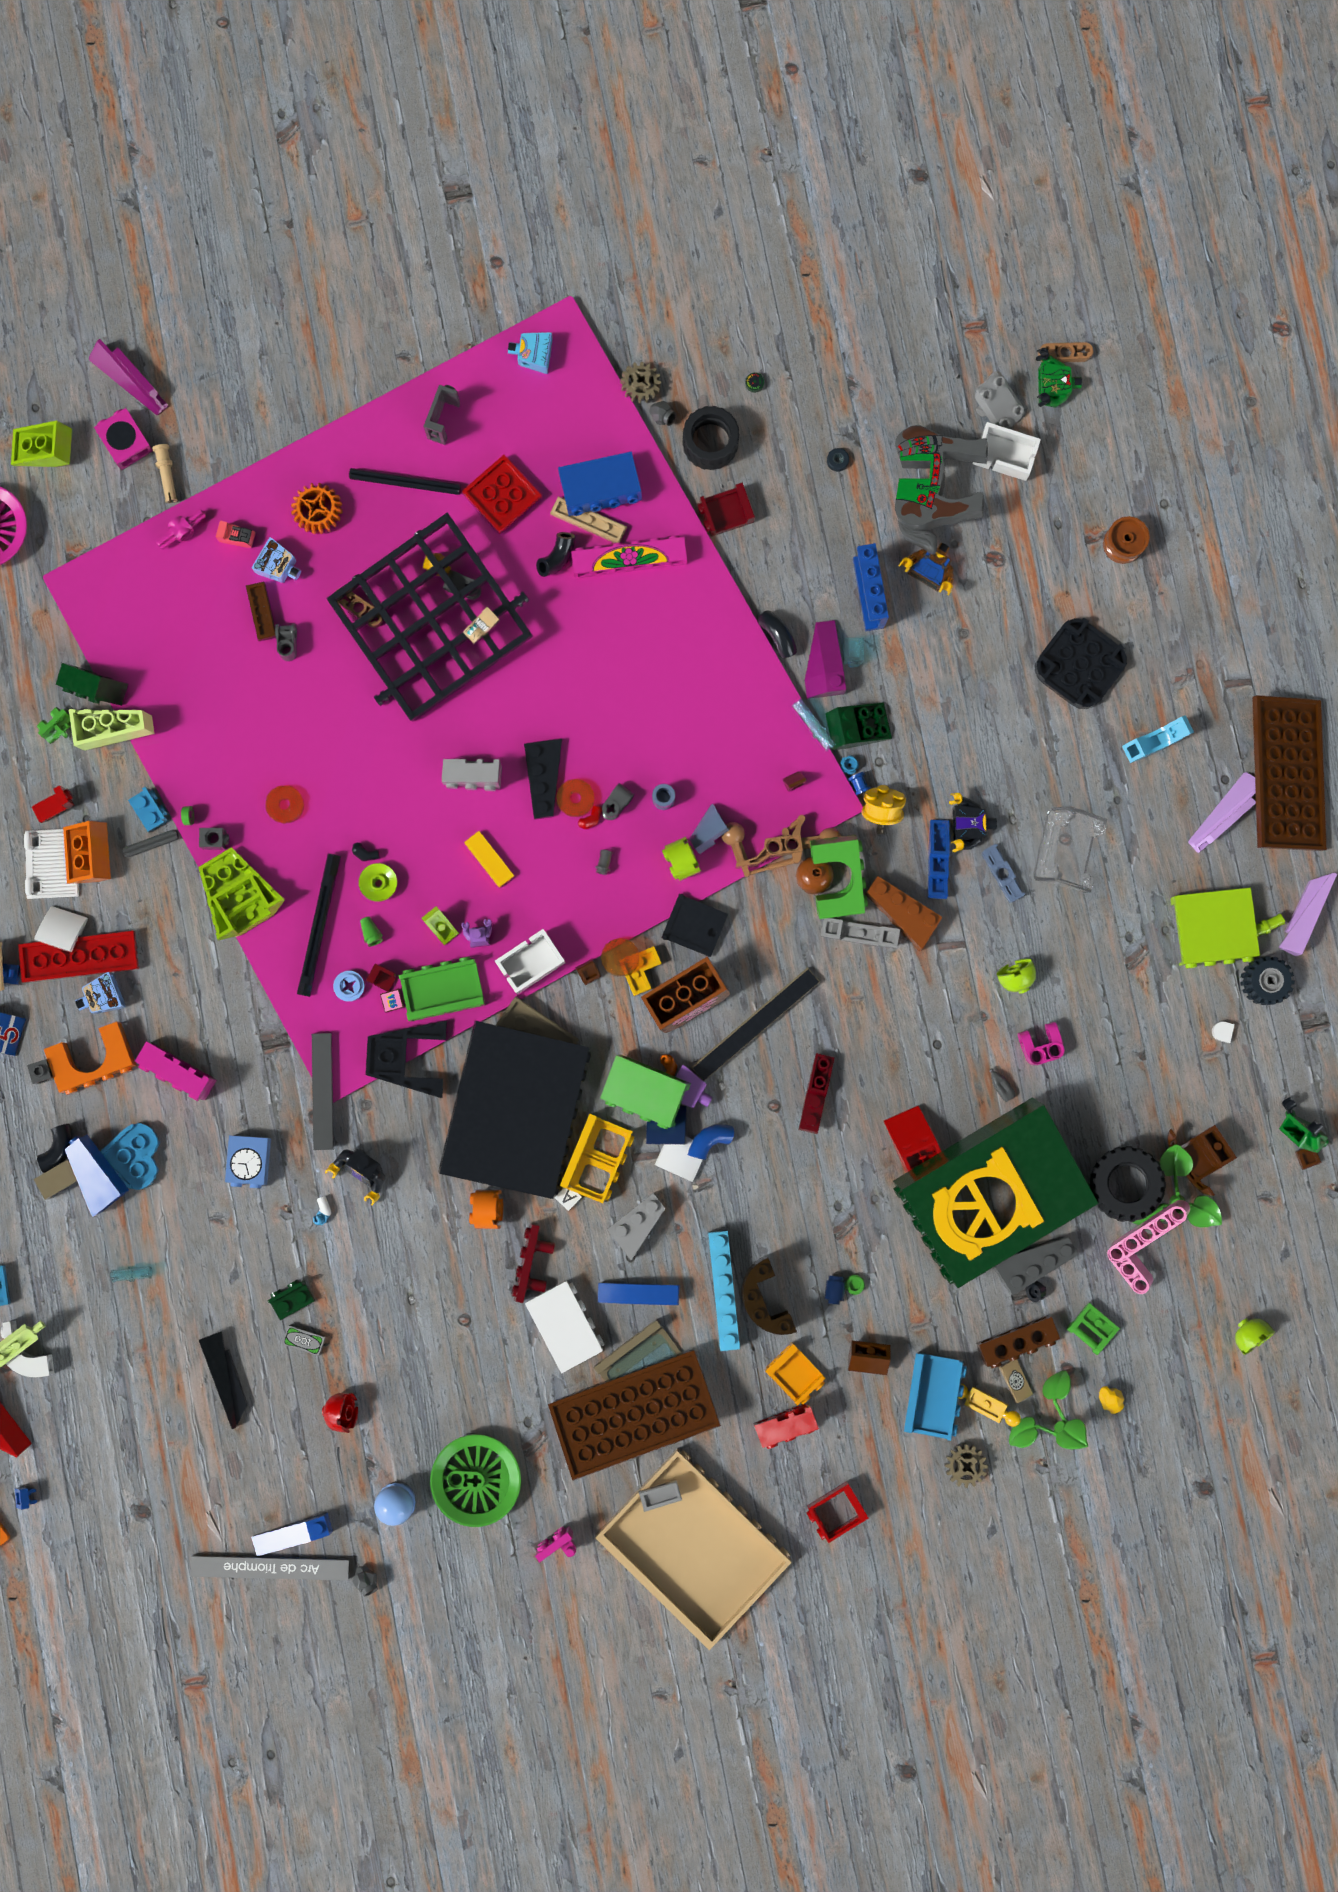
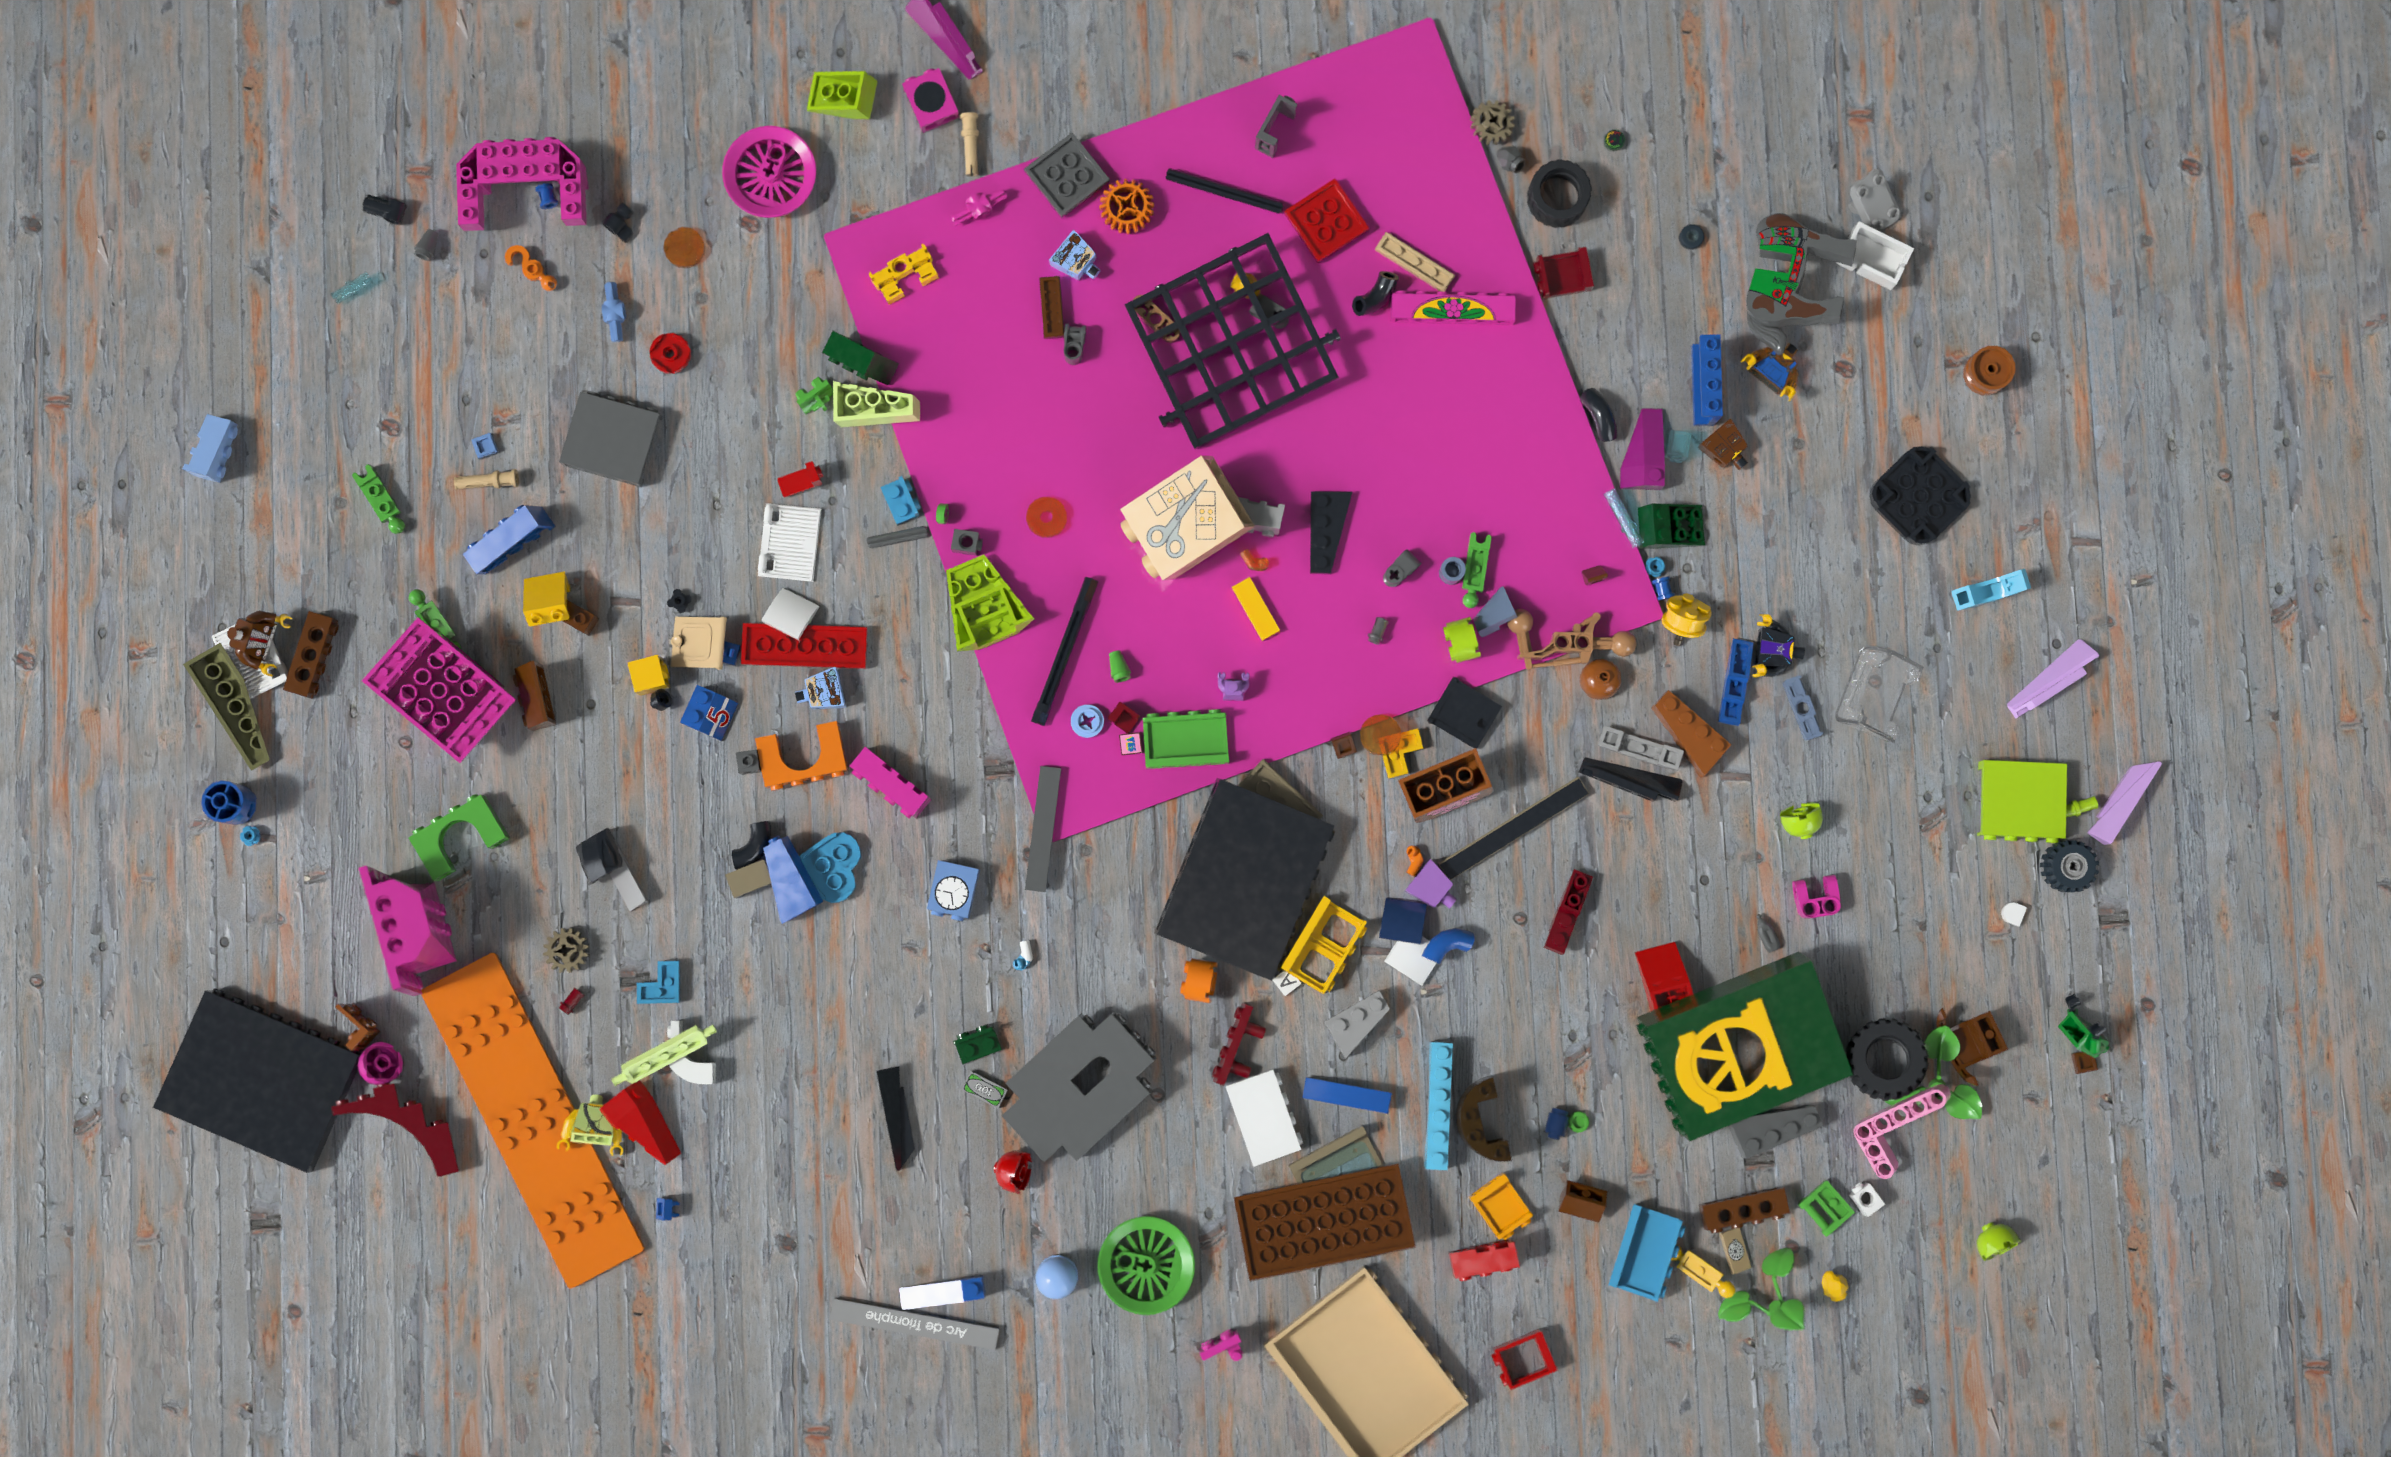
camera: 10 degrees right, 0 degrees up
(86, 852) = (829, 536): orange slope -> none
(105, 606) = (886, 276): none -> yellow piece
(131, 1274) = (812, 991): clear light blue pin -> none
(235, 535) = (1036, 221): coral leg -> none
(257, 488) = (1066, 175): none -> dark grey plate
(361, 1167) = (1073, 916): black torso -> none
(363, 854) = (1122, 583): black arm -> none
(365, 1581) = (1013, 1353): dark grey rock -> none
(367, 1348) = (1055, 1110): none -> dark grey panel
(371, 875) = (1138, 605): lime dish -> none
(388, 1057) = (1118, 802): black wing -> none
(410, 786) = (1185, 519): none -> brick
(440, 925) = (1194, 671): lime slope -> none
(481, 625) = (1286, 358): tan leg -> none
(483, 817) = (1252, 563): none -> clear orange arm
(531, 962) = (1284, 726): white piece -> none
(533, 351) = (1382, 71): medium azure torso -> none
(575, 809) = (1361, 546): clear orange tile -> none
(592, 820) = (1370, 584): red arm -> none
(600, 484) = (1434, 225): blue panel -> none
(644, 1091) = (1386, 881): bright green panel -> none
(660, 1495) = (1339, 1312): light grey tile -> none
(685, 793) = (1475, 569): none -> bright green plate
(850, 899) = (1637, 710): bright green arch -> none
(858, 963) = (1632, 780): none -> black wedge
(897, 645) = (1725, 446): none -> reddish brown torso
(971, 1460) = (1676, 1326): dark tan gear -> none
(1036, 1291) = (1771, 1159): black tile -> none
(1051, 347) = (1968, 165): medium nougat beam -> none
(1054, 380) = (1938, 187): green torso -> none
(1136, 1316) = (1874, 1202): none -> white brick
(1289, 773) = (2127, 648): reddish brown plate -> none

